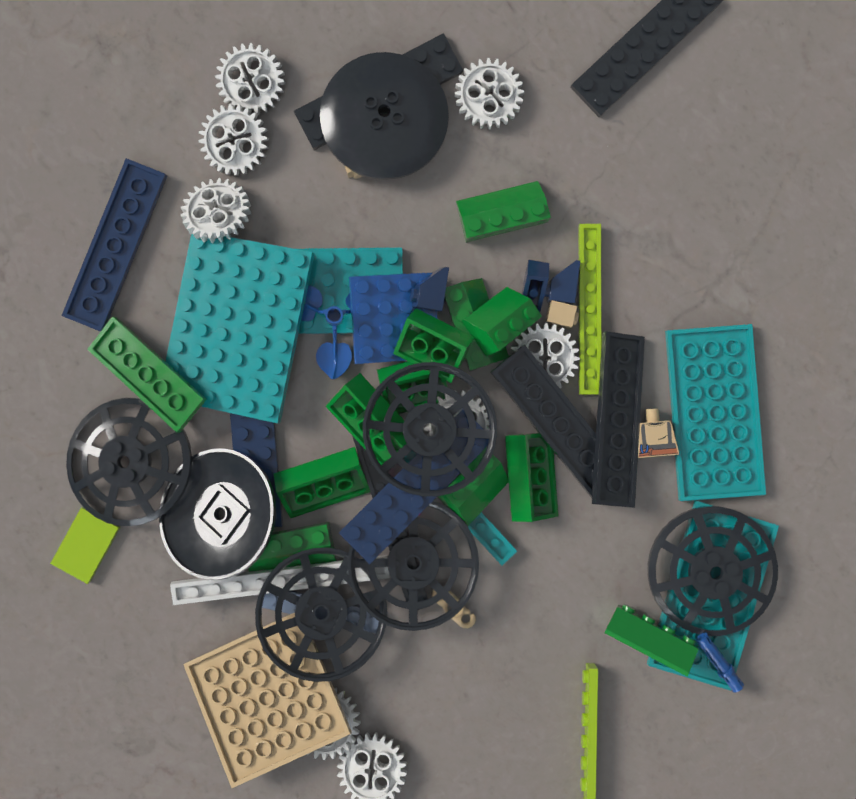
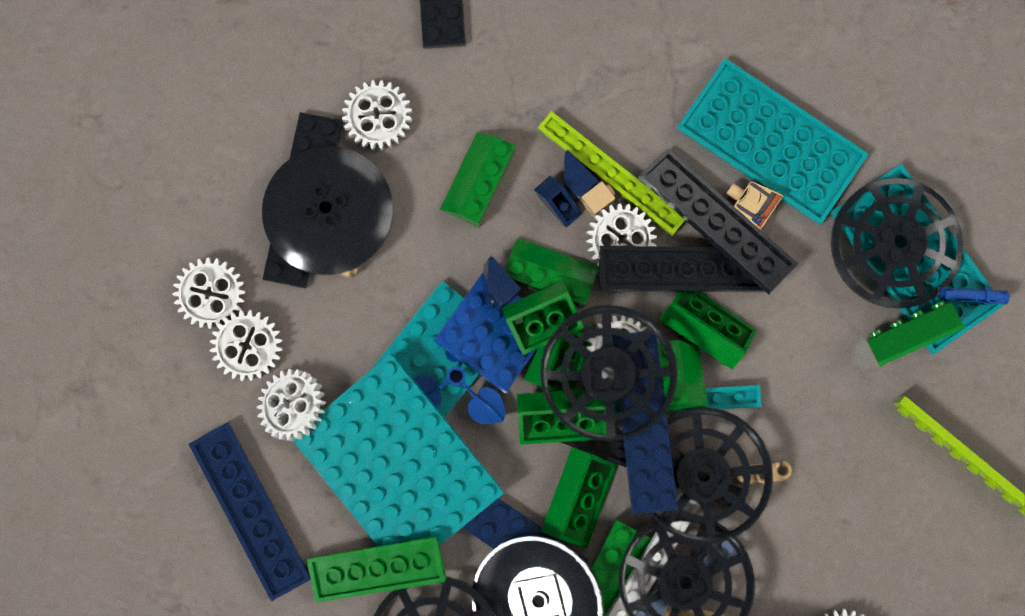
camera: 55 degrees left, 5 degrees down
(501, 320) = (565, 248): green slope -> none

